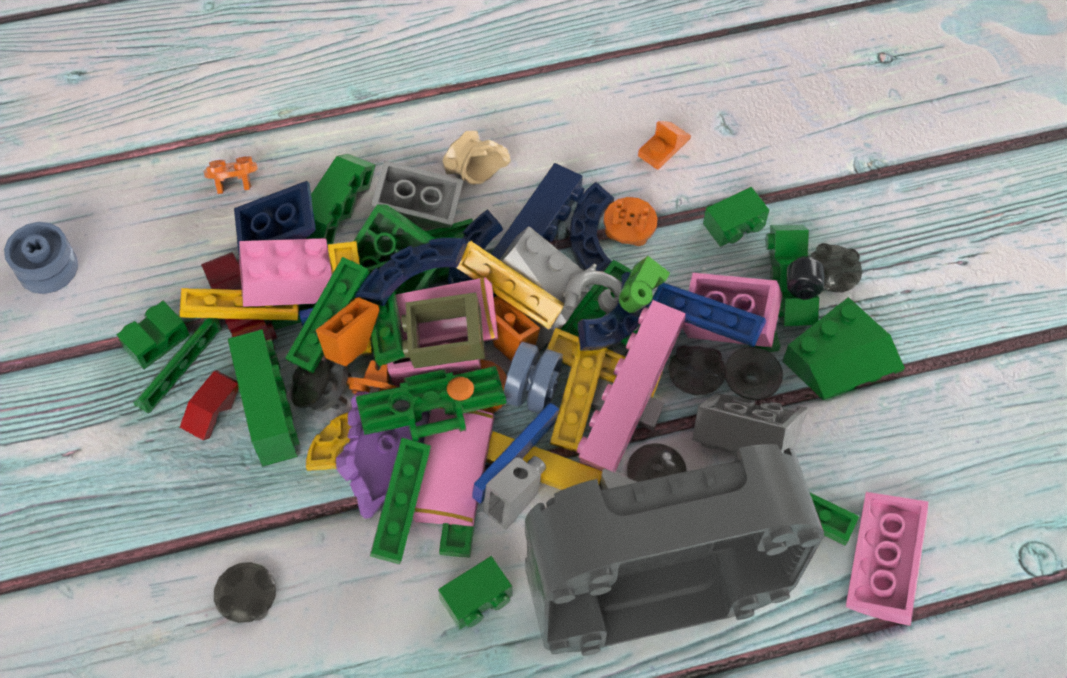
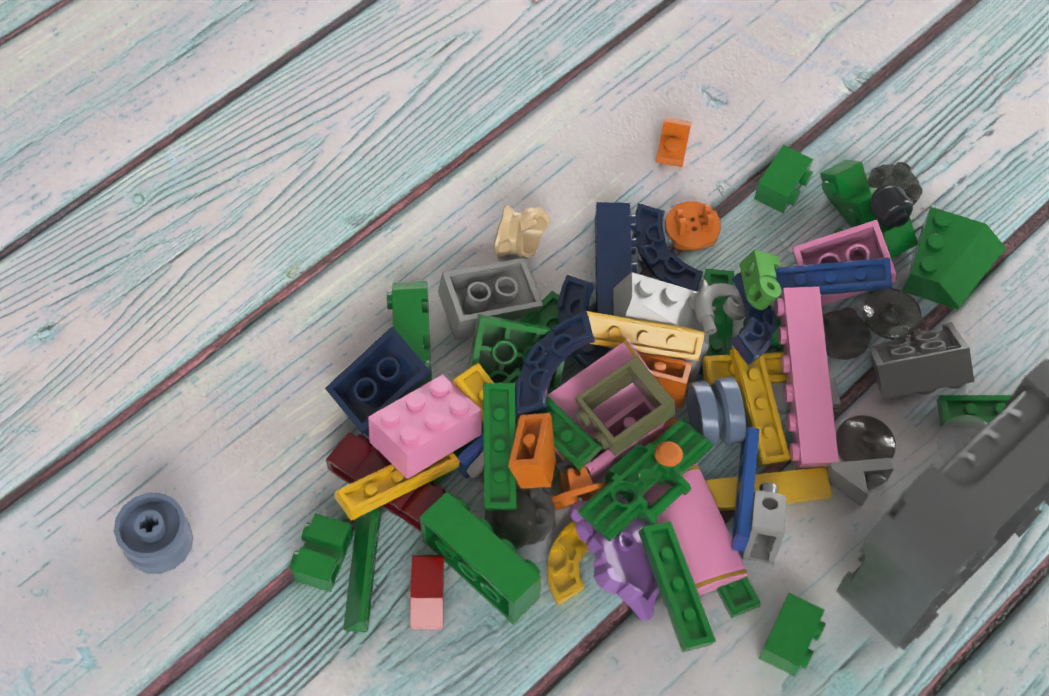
camera: 30 degrees left, 0 degrees up
(220, 170) = (291, 350): orange plate -> none

